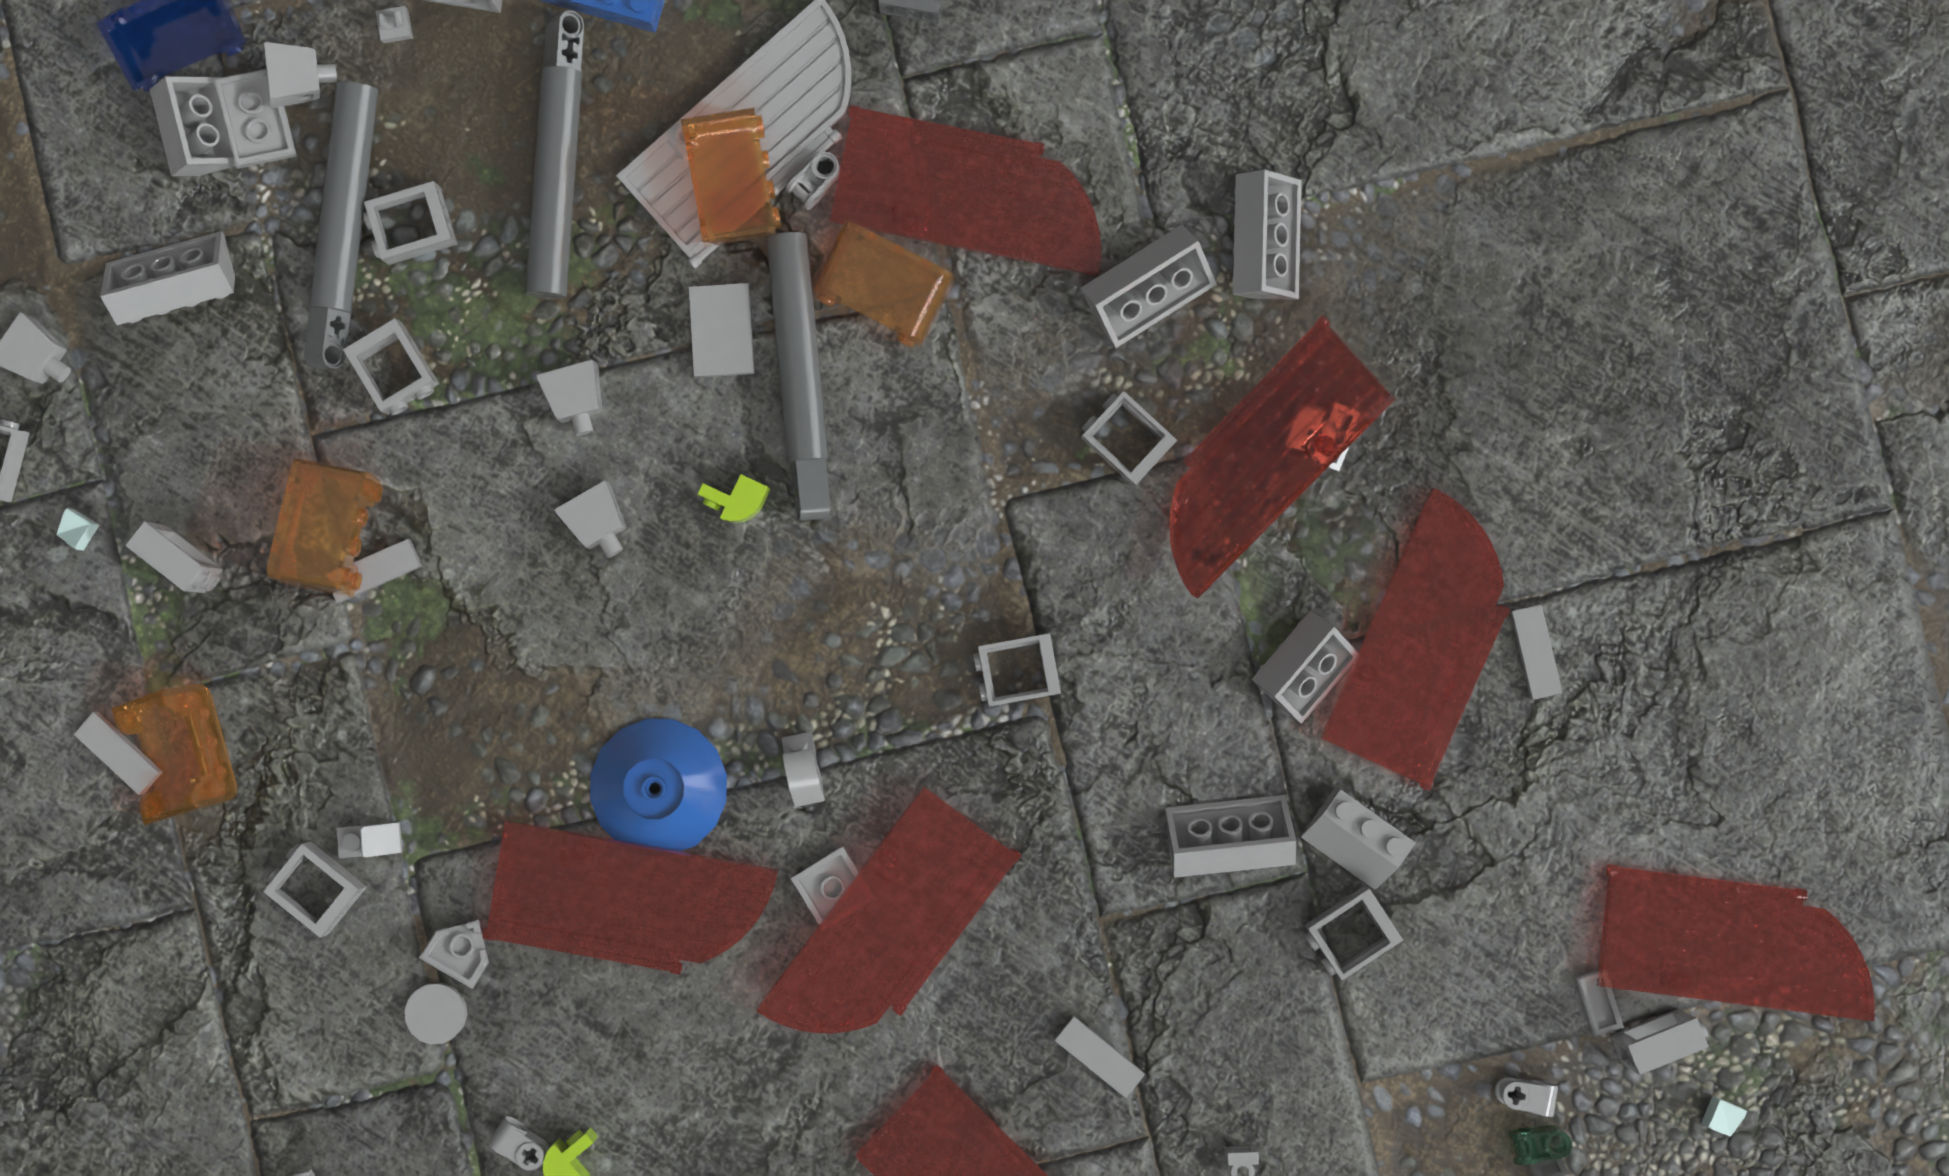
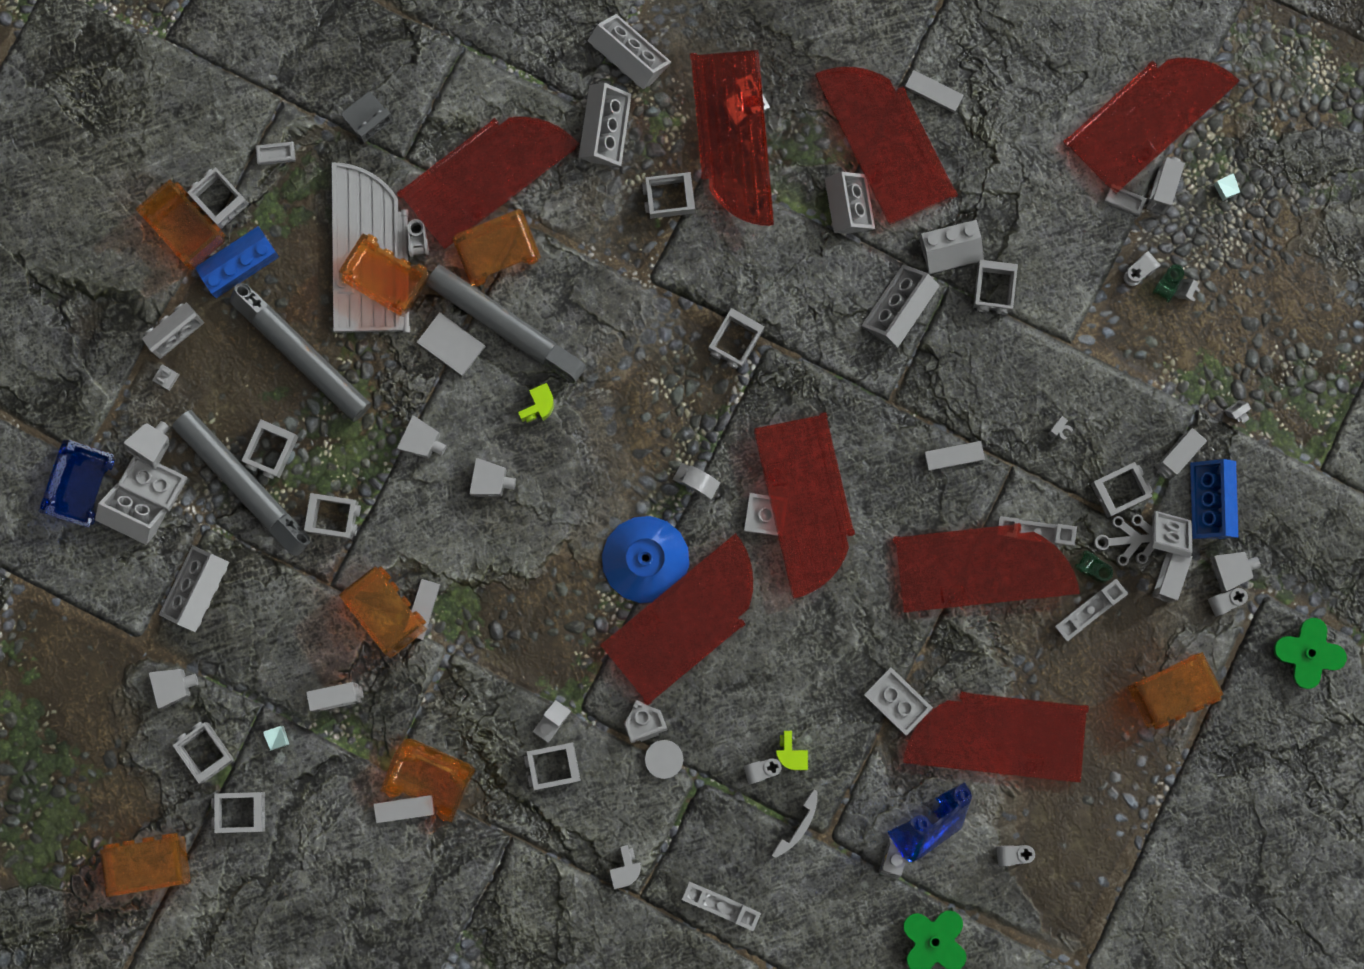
camera: 50 degrees left, 5 degrees down
(261, 1085) = (627, 874): none -> light grey brick

